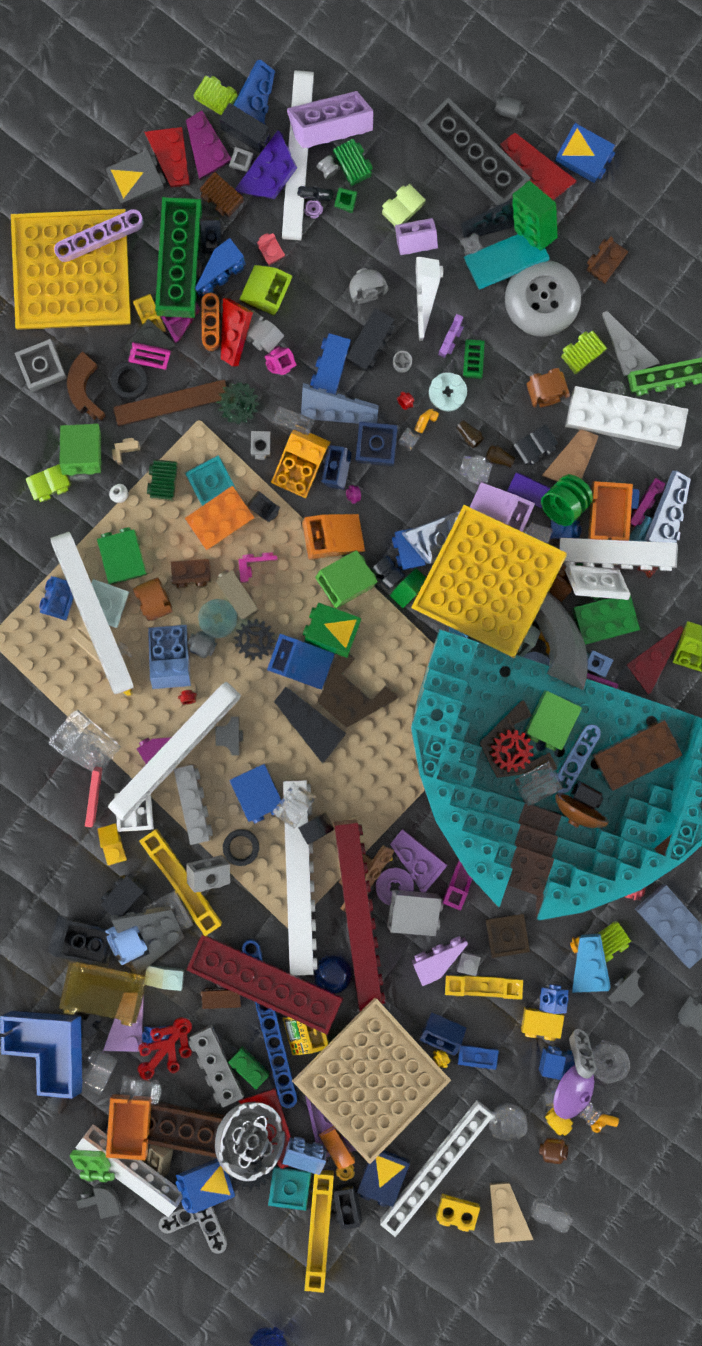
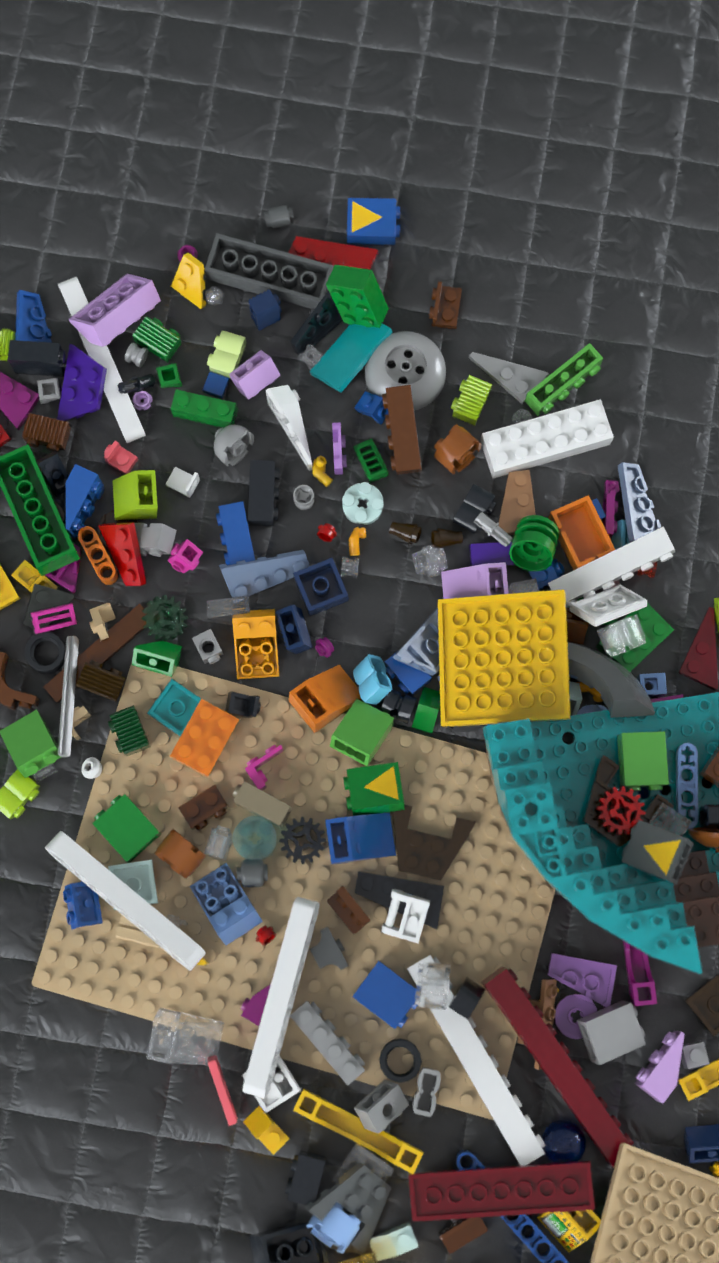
camera: 25 degrees left, 10 degrees down
(129, 426) = (68, 696): none -> light grey axle
(160, 427) = (100, 681): none -> dark brown brick
(187, 372) = (100, 616): none -> tan bracket
(188, 607) = (219, 843): none -> clear brick
(216, 432) = (157, 657): none -> green slope
(244, 885) = (424, 1098): none -> light grey brick
(261, 712) = (348, 910): none -> reddish brown bracket
(308, 745) = (412, 919): none -> white plate
(311, 296) = (183, 481): none -> white bracket
(359, 244) = (203, 409): none -> green brick
(377, 541) = (372, 679): none -> medium azure brick
(380, 227) = (216, 385): none -> blue tile
(405, 126) = (190, 280): none -> yellow wing
(415, 95) = (187, 249): none -> magenta plate
(419, 149) = (214, 296): none -> clear plate
(426, 346) = (318, 471): none -> yellow arm
(454, 185) = (265, 309): none -> dark blue brick
(499, 315) = (372, 406): none -> blue bracket
(511, 350) = (403, 429): none -> reddish brown brick
(520, 797) = (657, 852): none -> dark grey brick
(540, 471) = (493, 529): none -> light grey axle
(593, 613) = (622, 634): none -> clear brick

